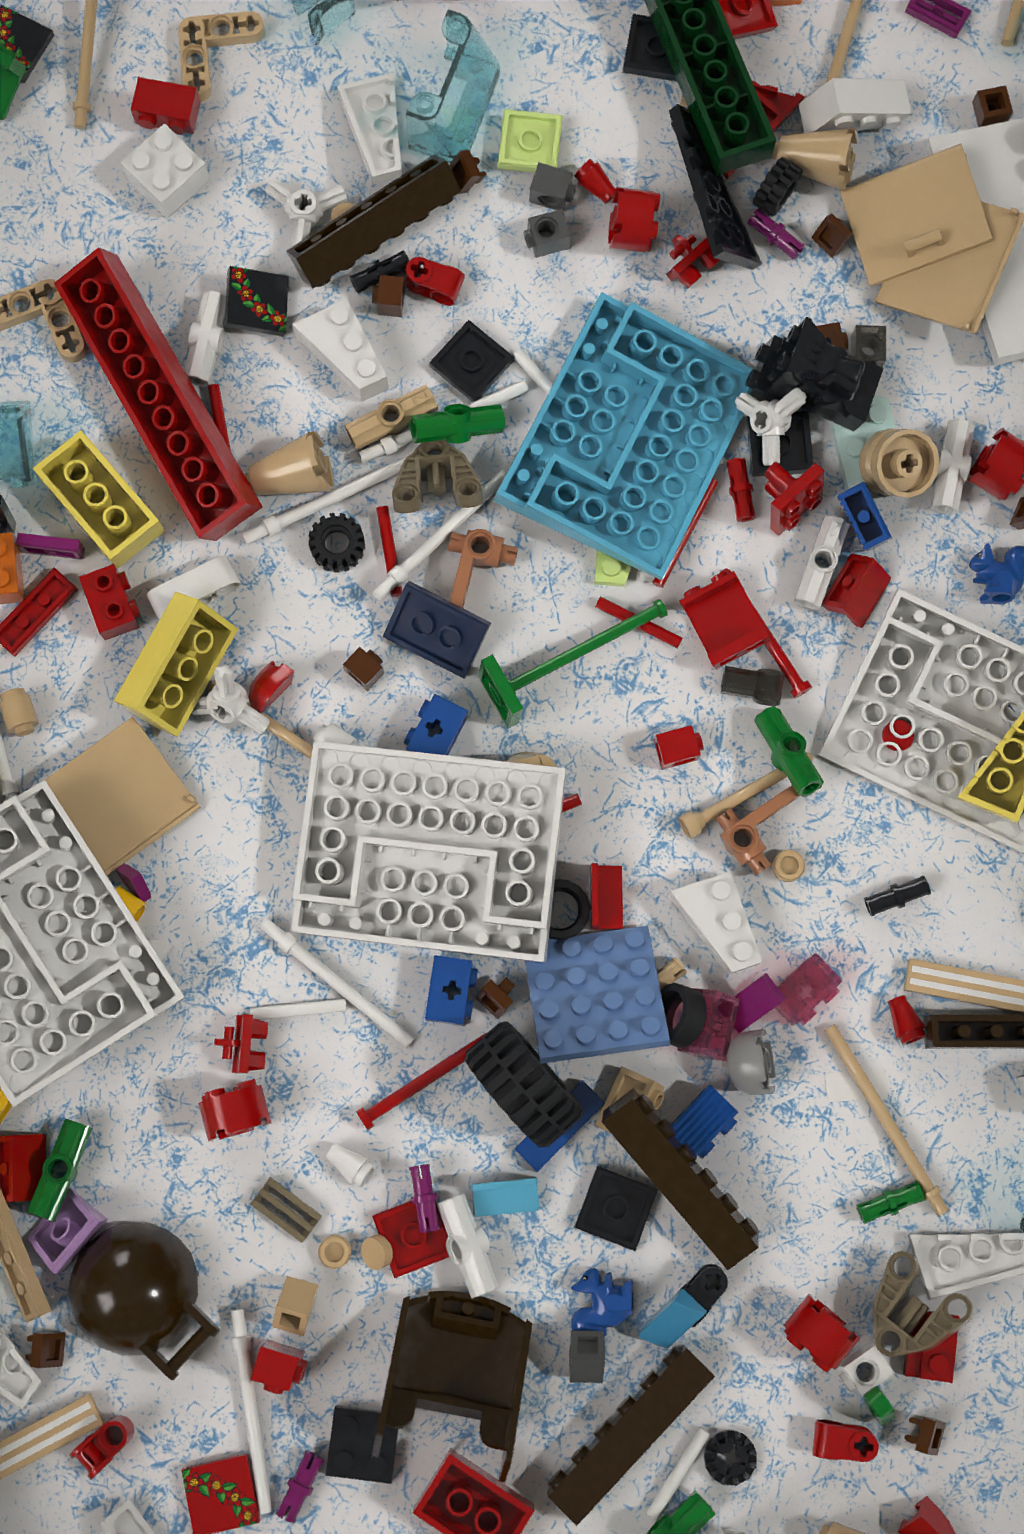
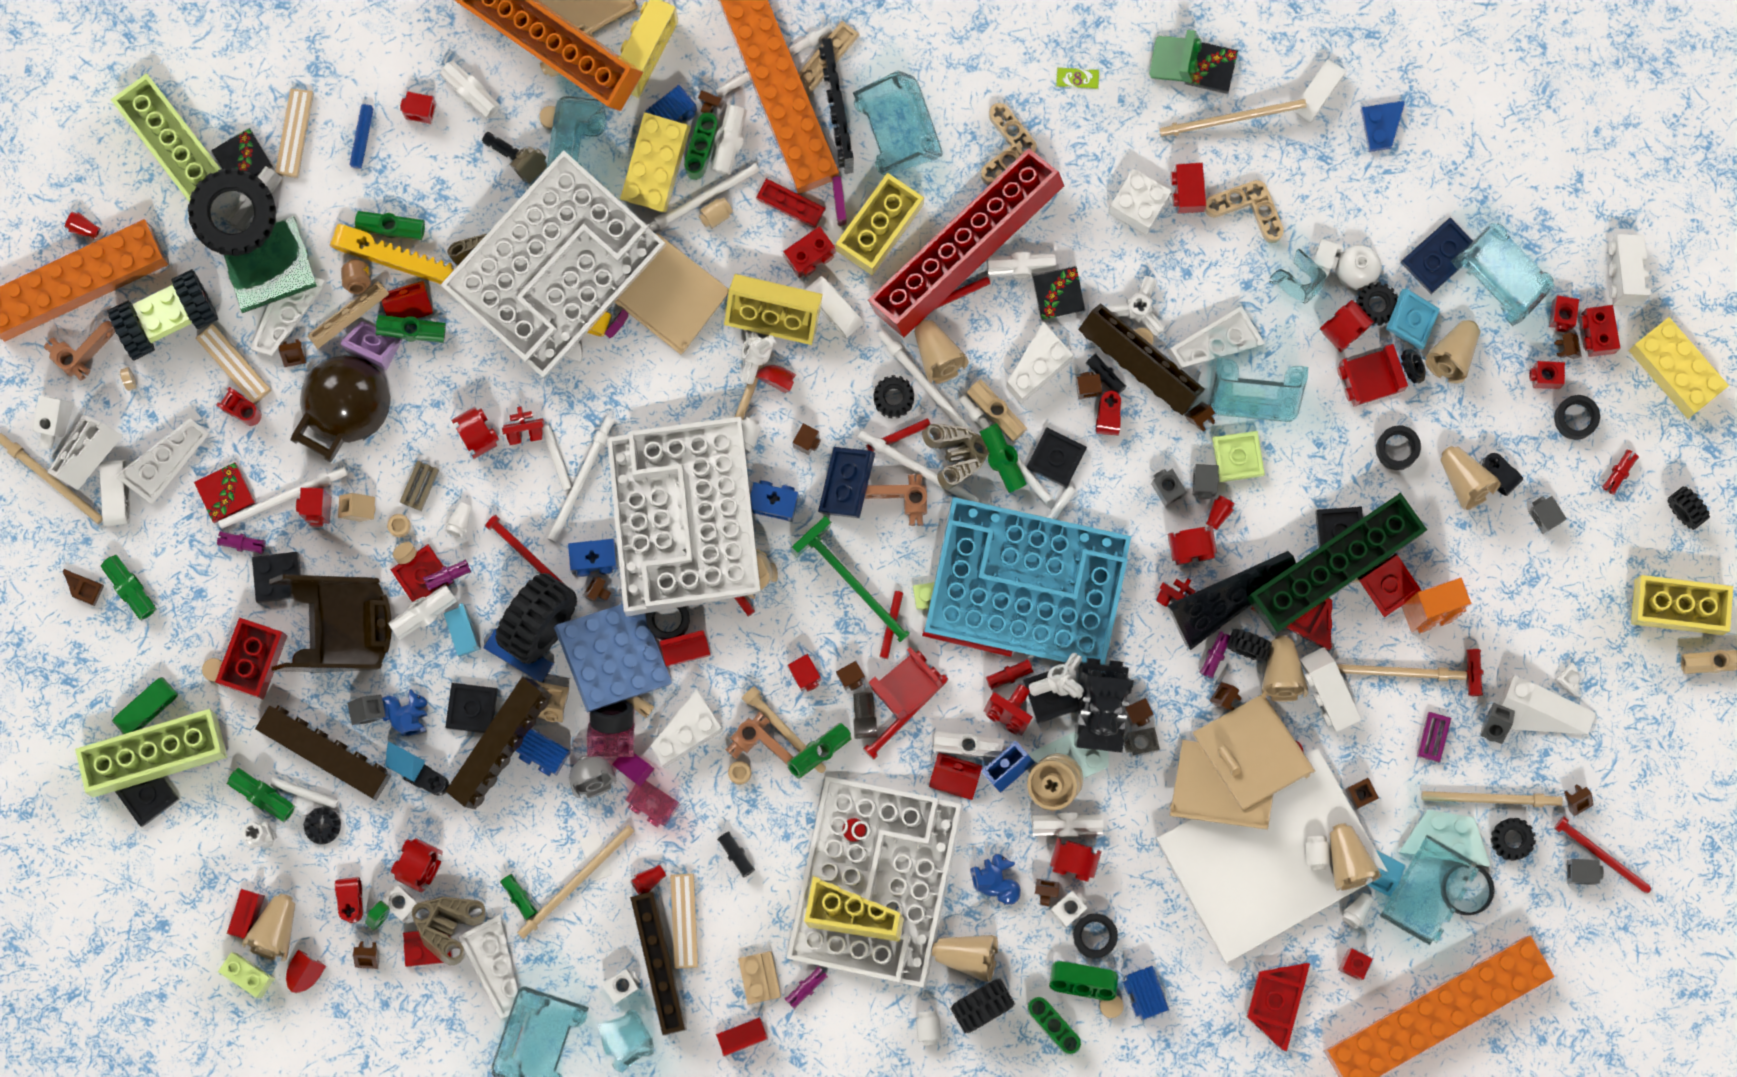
camera: 80 degrees right, 0 degrees up
(696, 688) = (851, 676): none -> reddish brown plate

